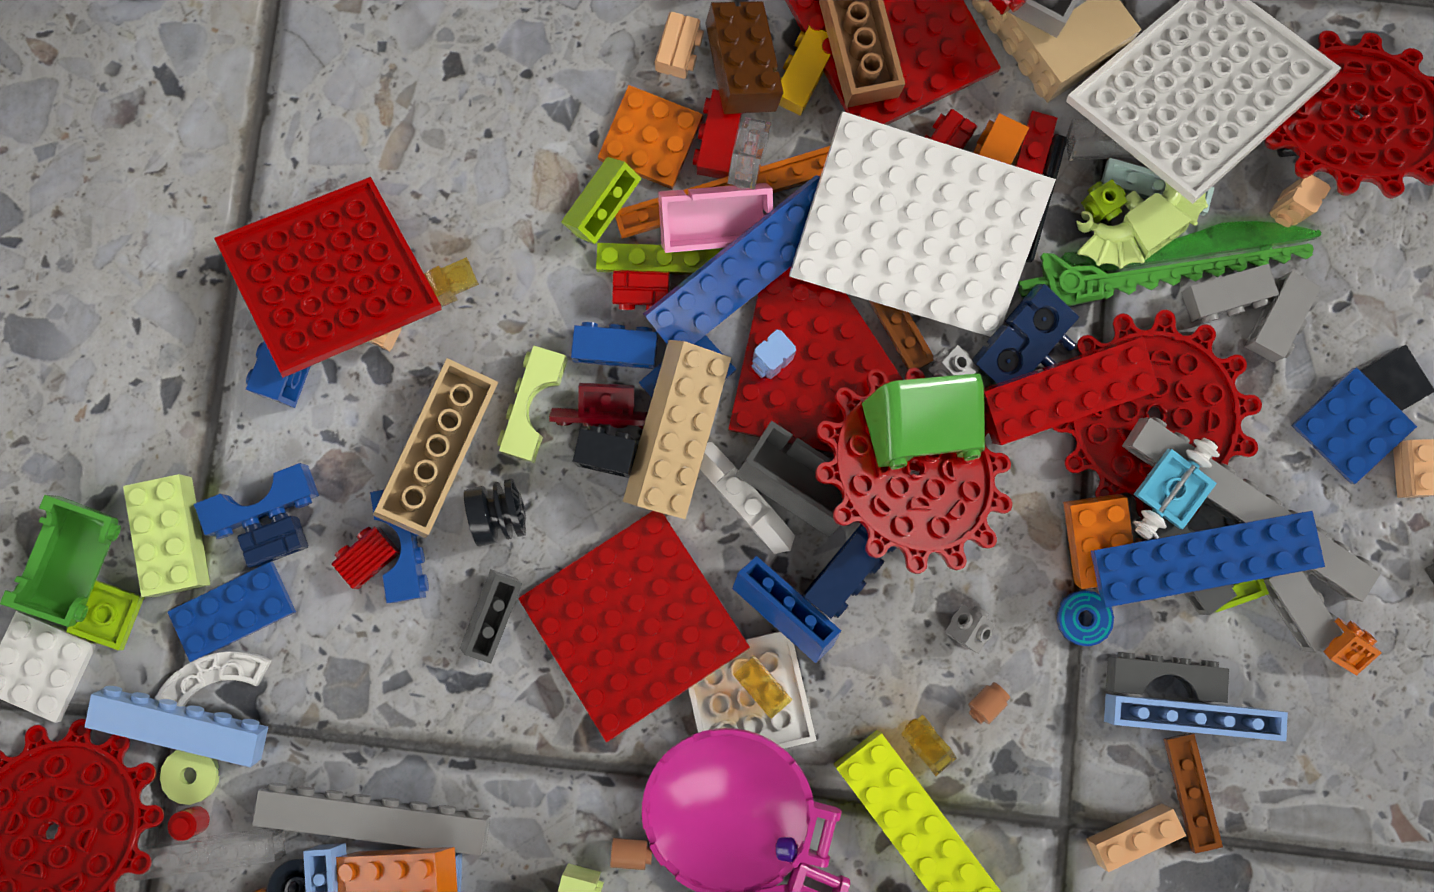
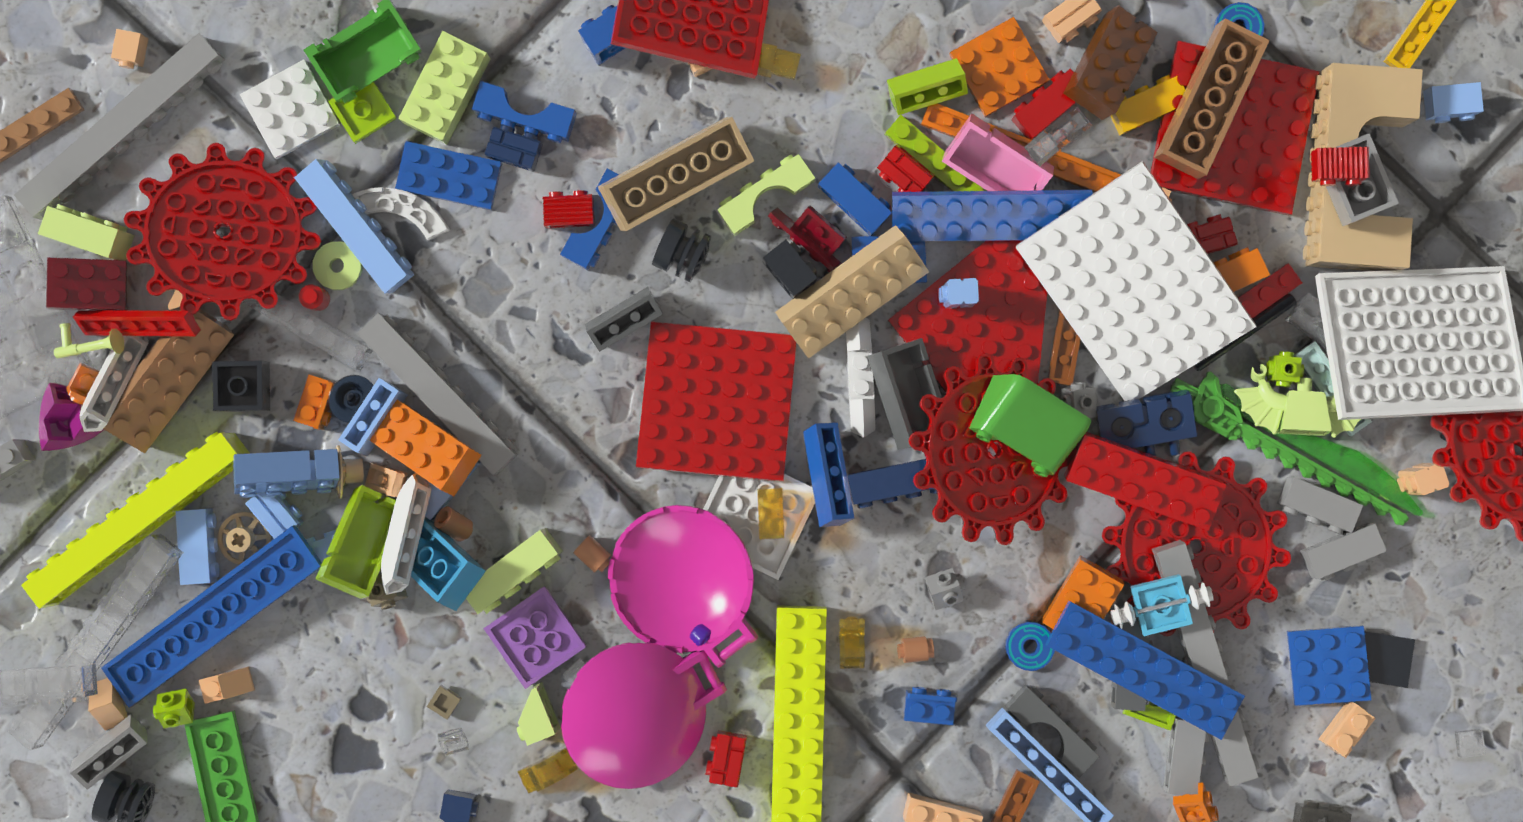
camera: 45 degrees right, 5 degrees up
(1042, 745) = (929, 706): none -> blue bracket

